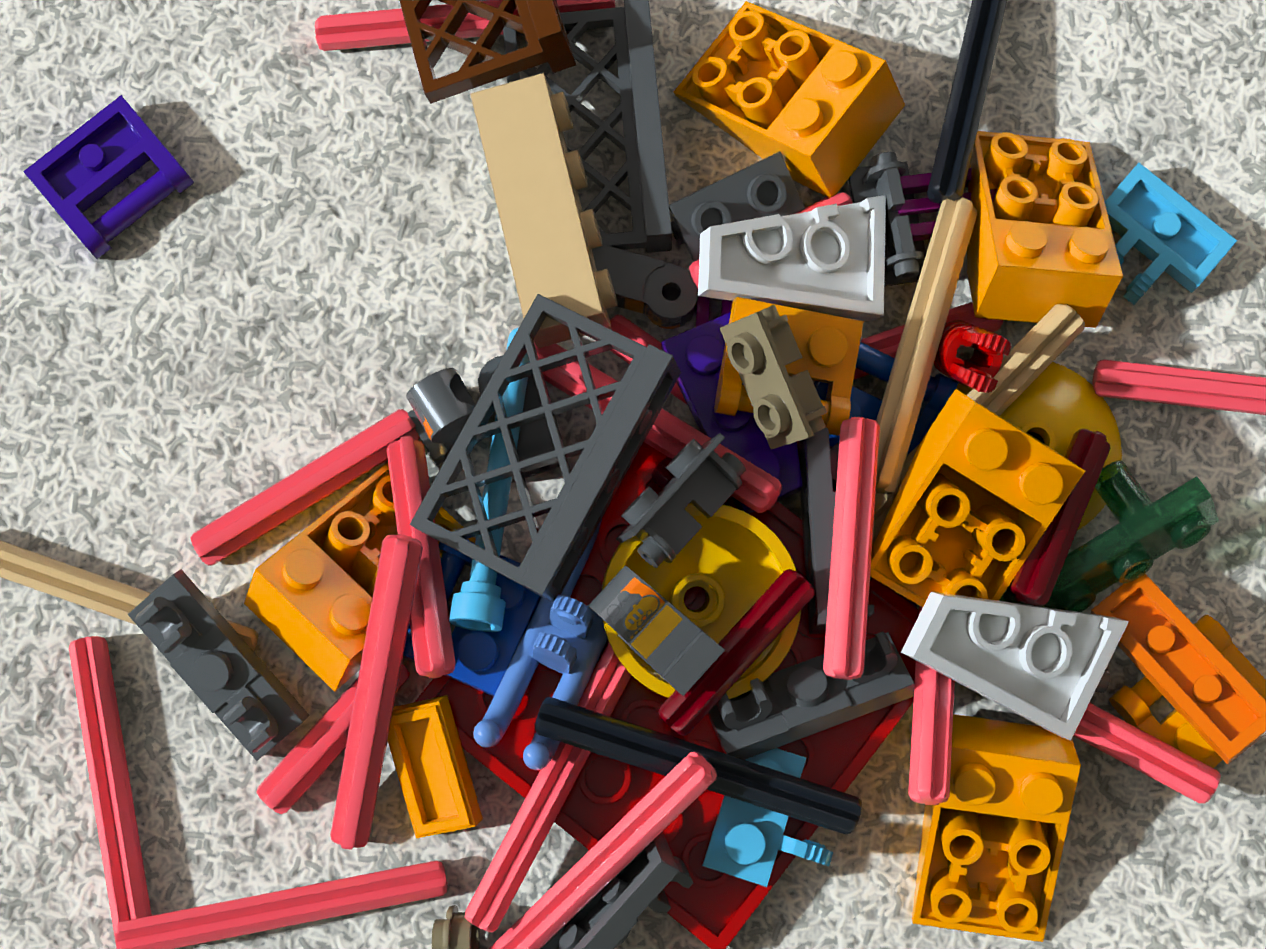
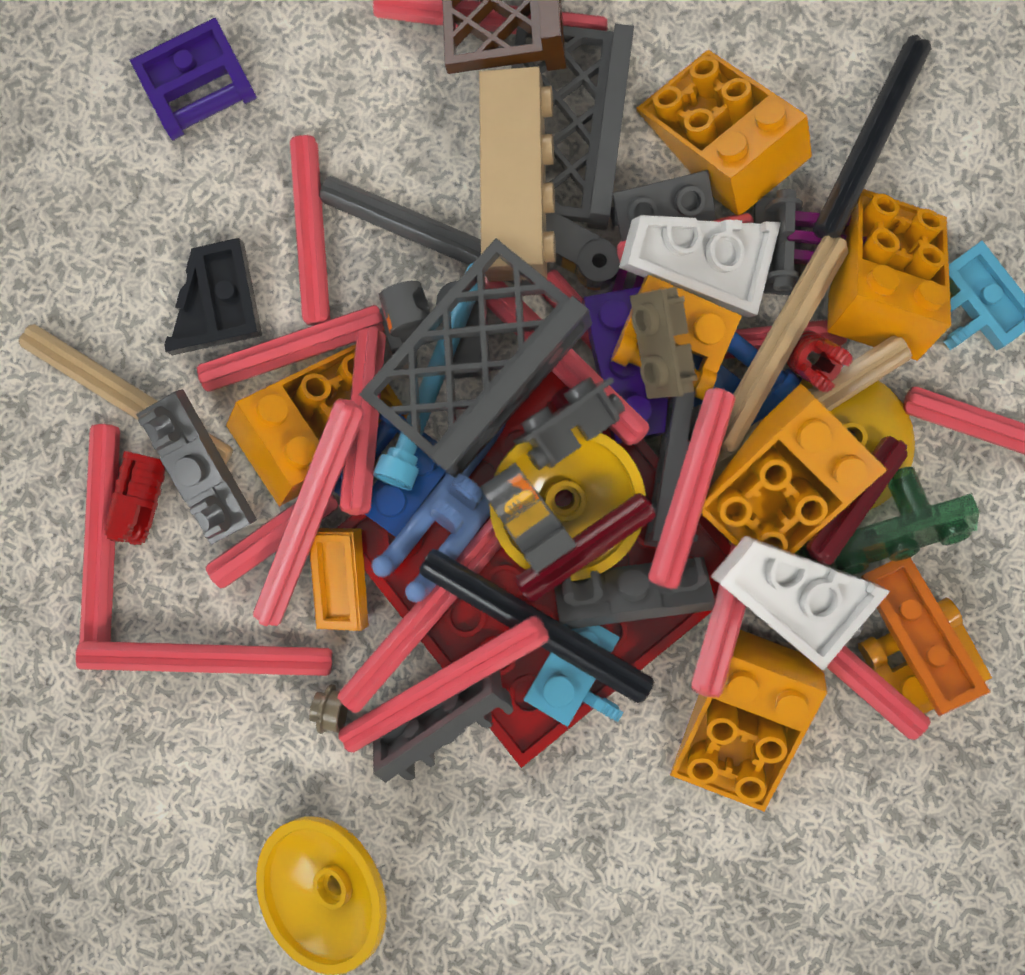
camera: 15 degrees right, 5 degrees up
(147, 722) = (135, 498): none -> red hinge
(195, 447) = (216, 300): none -> black wing
(297, 333) = (309, 230): none -> coral axle
(413, 297) = (402, 221): none -> dark grey axle

